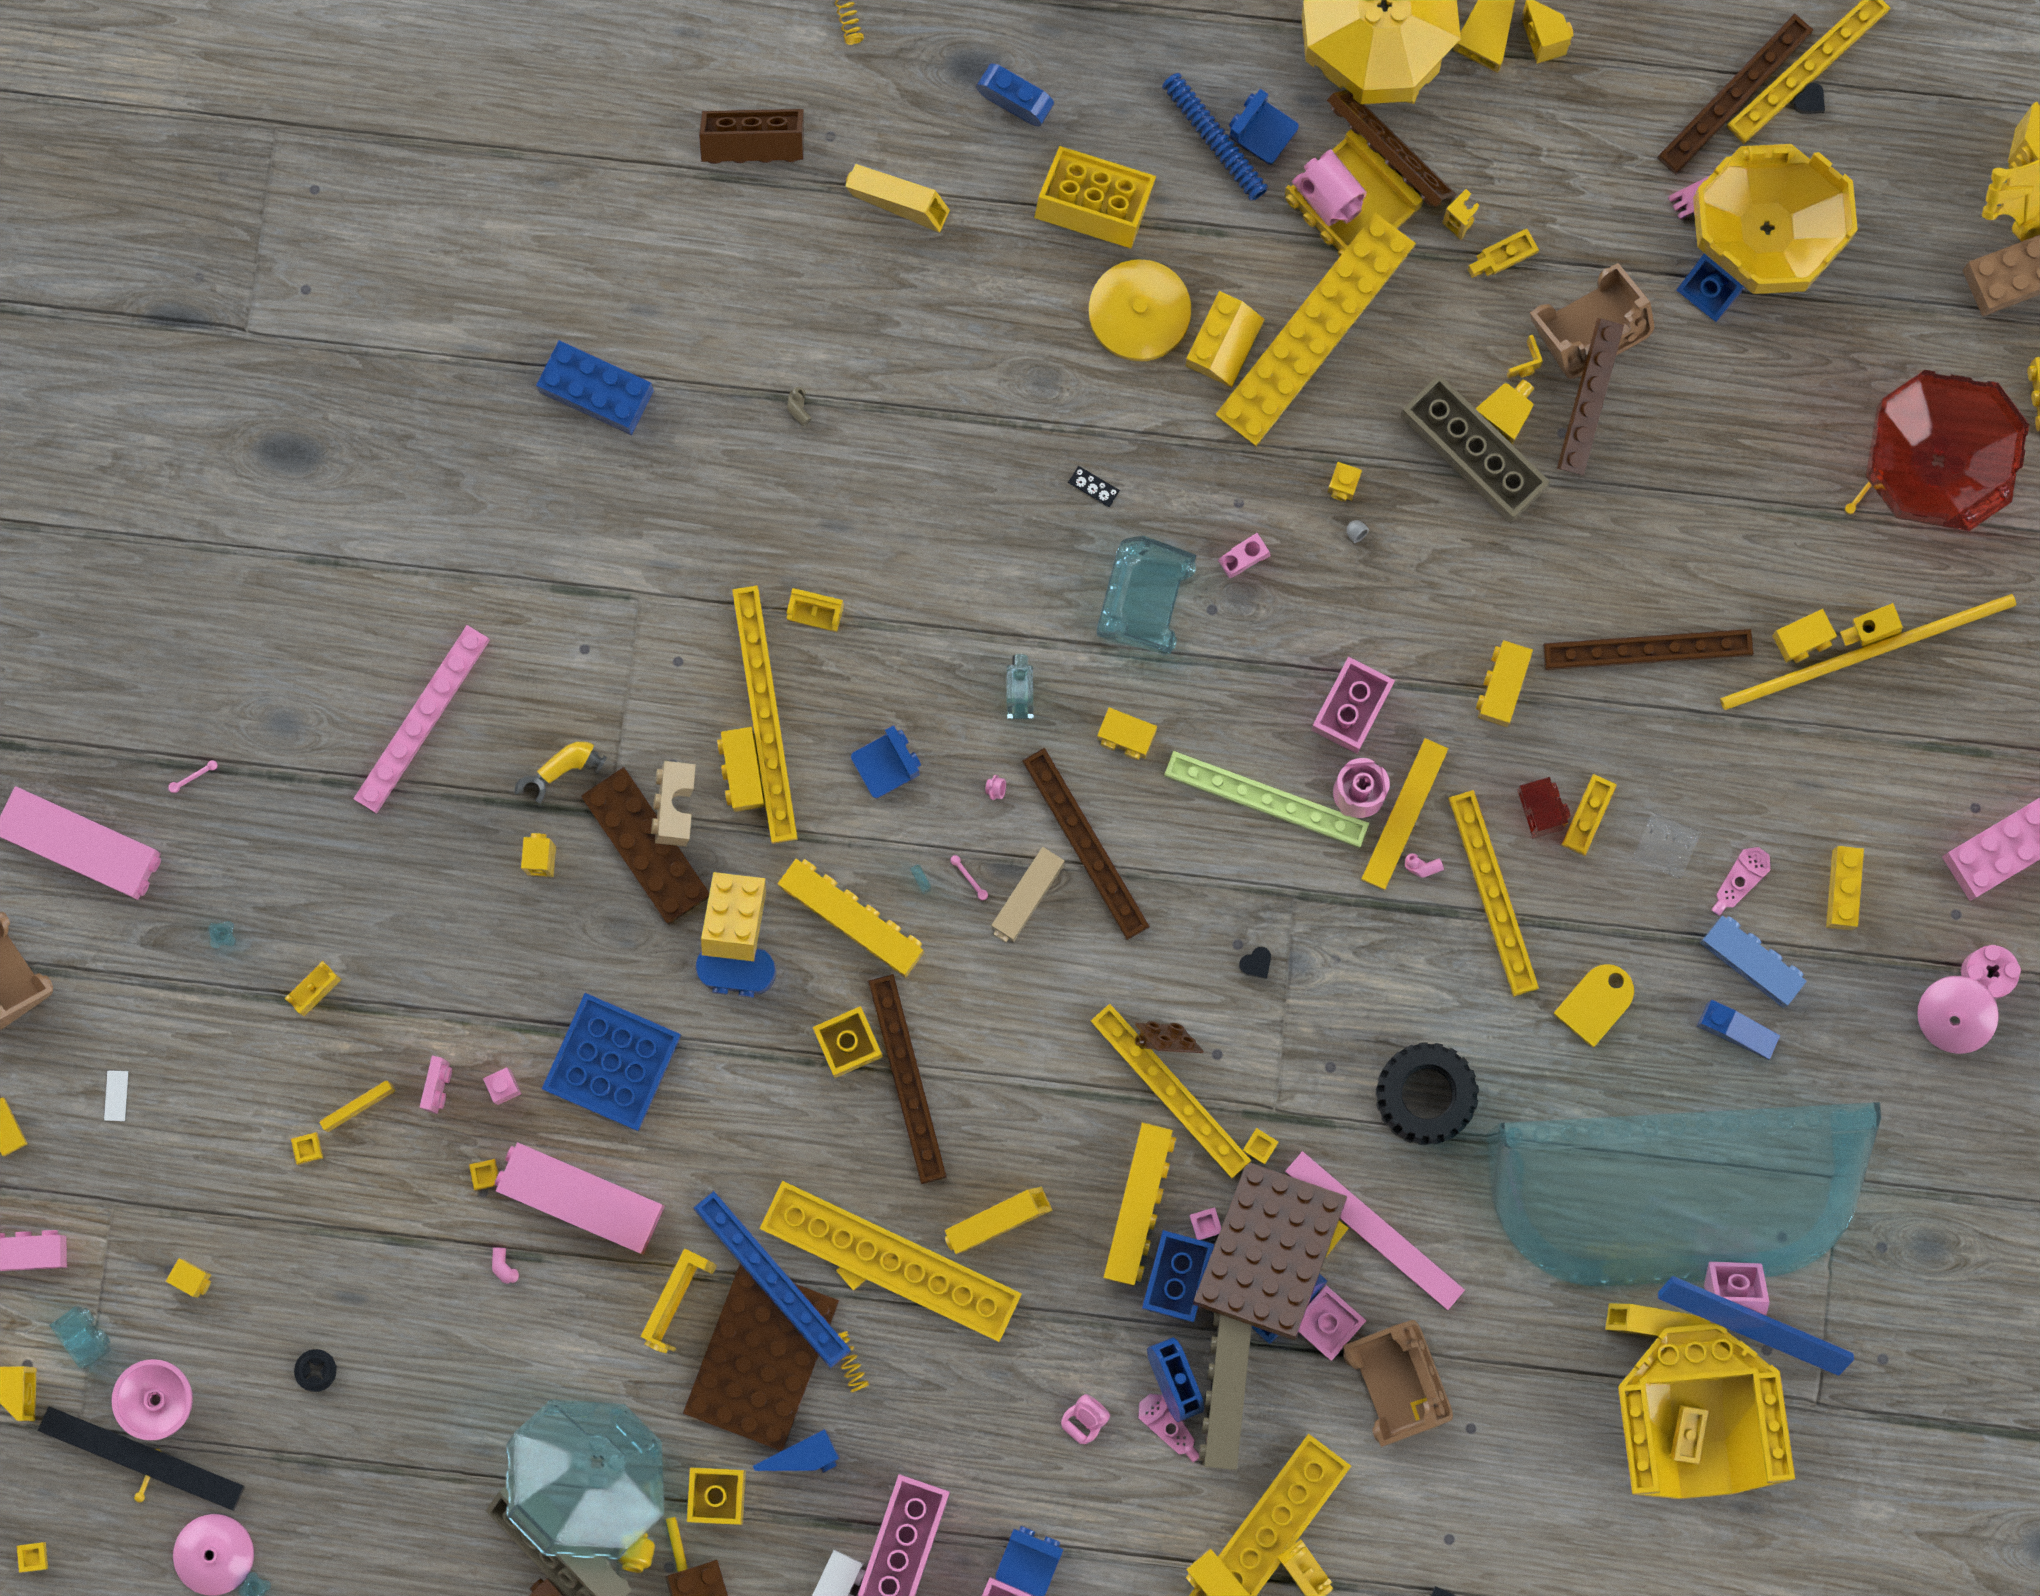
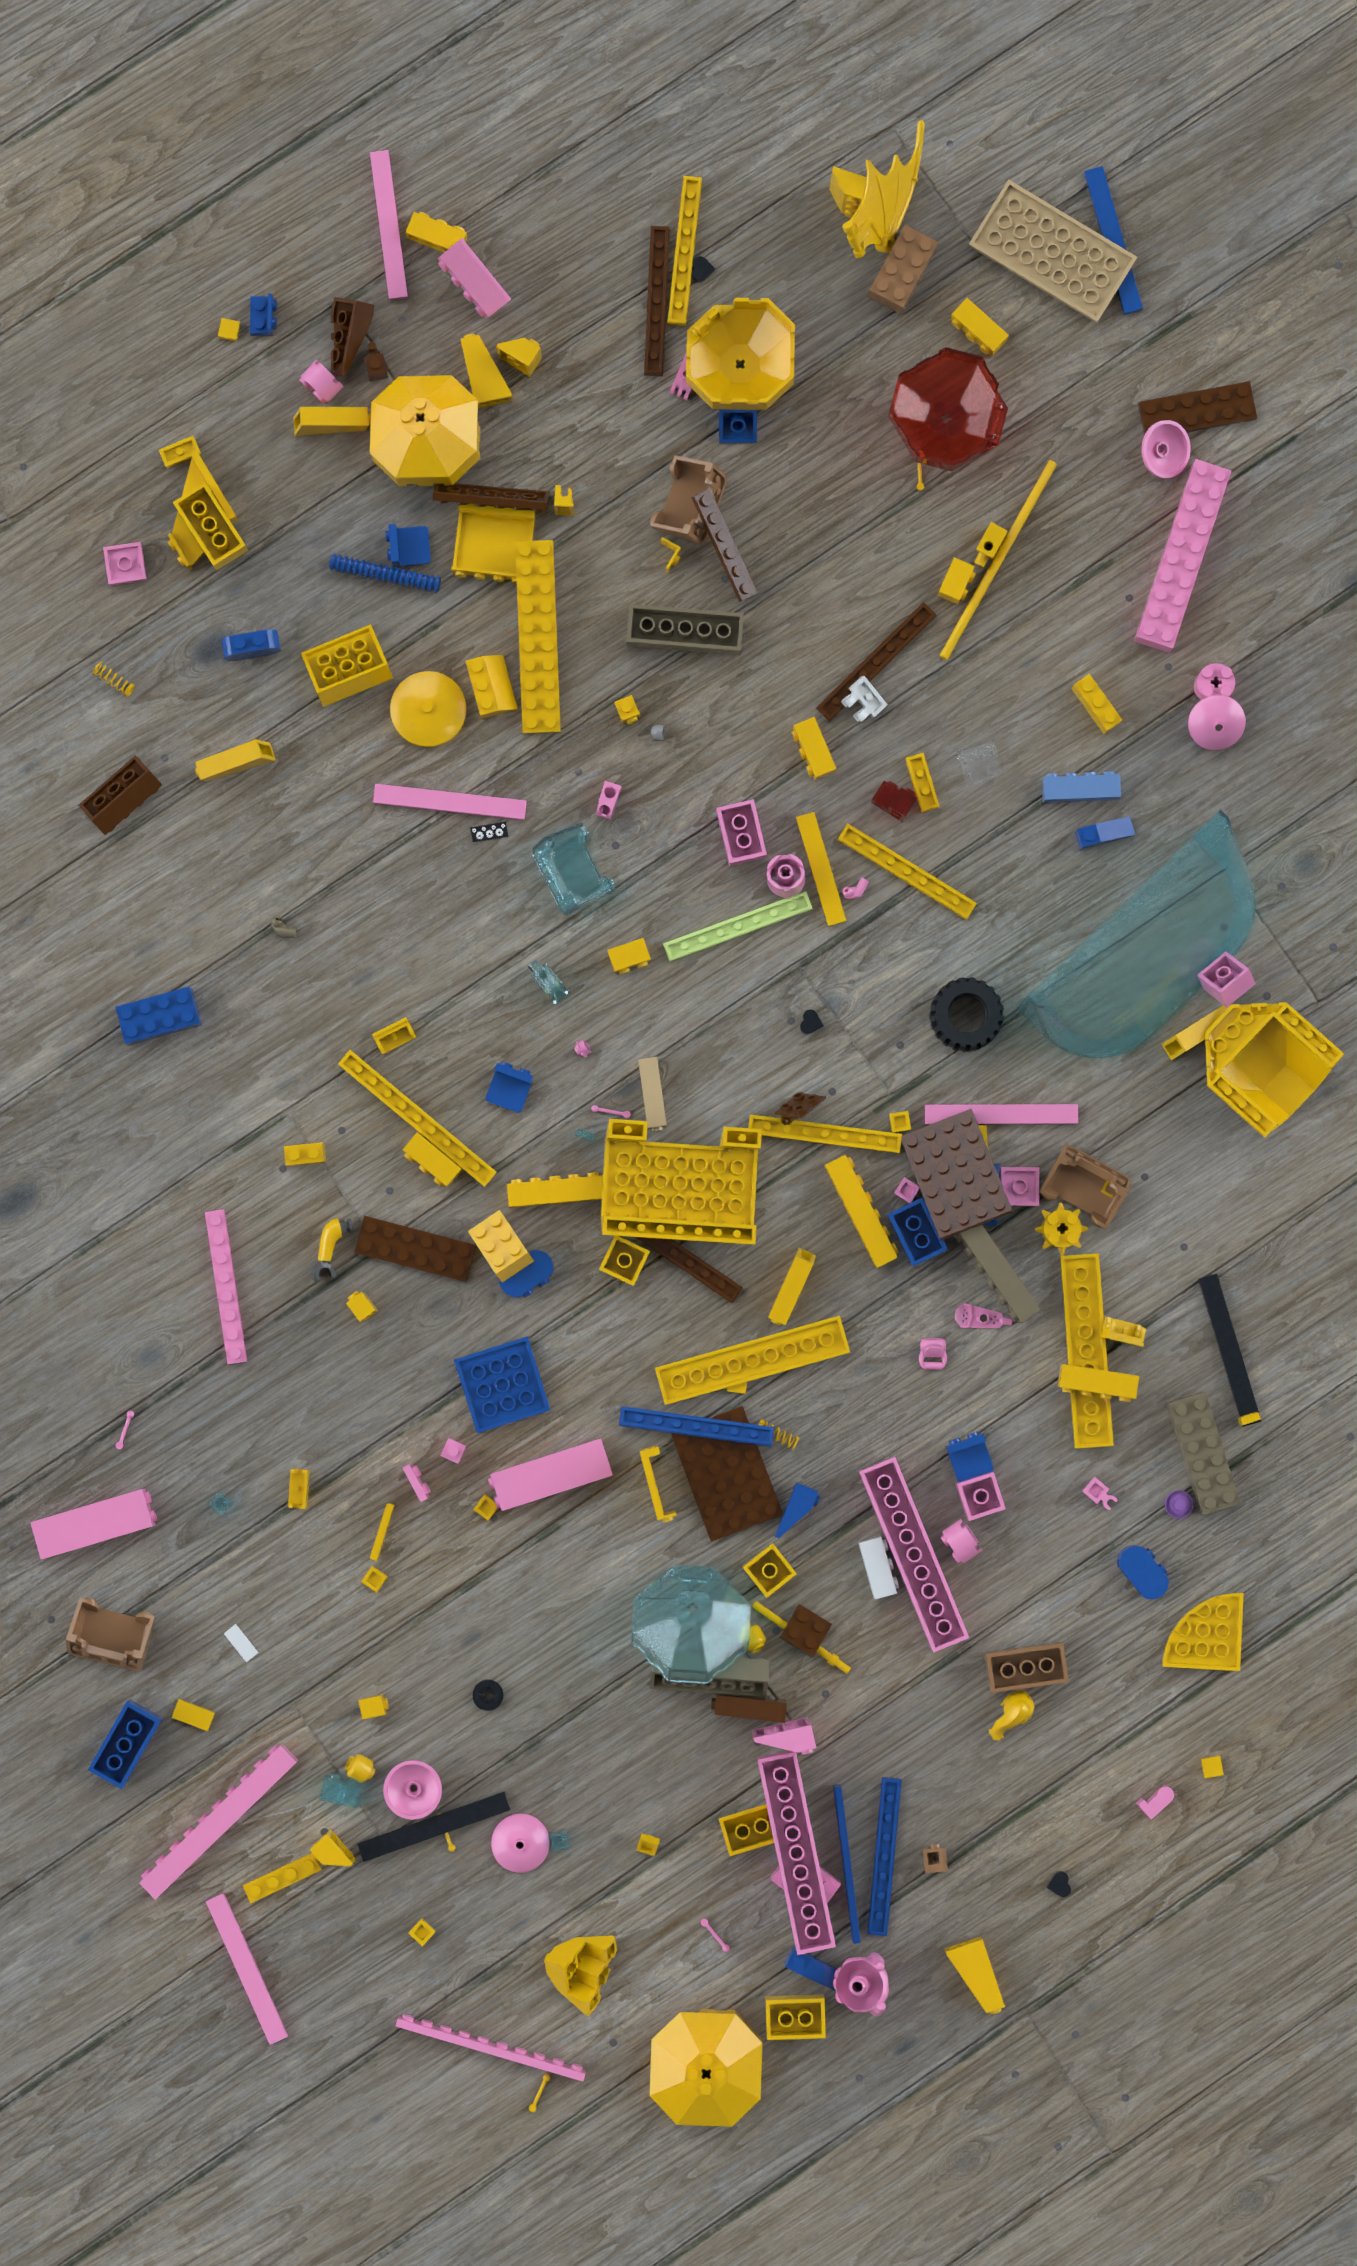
camera: 50 degrees left, 5 degrees up
(119, 1330) = (359, 1768): none -> yellow head
(501, 1269) = (541, 1551): bright pink arm -> none
(618, 652) = (304, 1154): none -> yellow brick
(671, 825) = (420, 1225): tan arch -> none
(970, 1014) = (679, 1187): none -> yellow slope
(1080, 422) = (449, 801): none -> bright pink tile
(1085, 844) = (659, 1037): reddish brown tile -> none
(1175, 1379) = (964, 1289): blue brick -> none
(1330, 189) = (478, 549): bright pink cylinder -> none
(1335, 1421) = (1055, 1219): none -> yellow brick
(1504, 254) = (606, 503): yellow hinge -> none
(1508, 409) = (684, 591): yellow torso -> none
(1595, 1004) = (1015, 885): yellow tile -> none
(1607, 677) = (867, 696): none -> white plate
(1689, 1434) = (1265, 1078): yellow plate -> none
(1747, 872) = (1035, 740): bright pink piece -> none
(1755, 1325) = (1252, 988): blue tile -> none

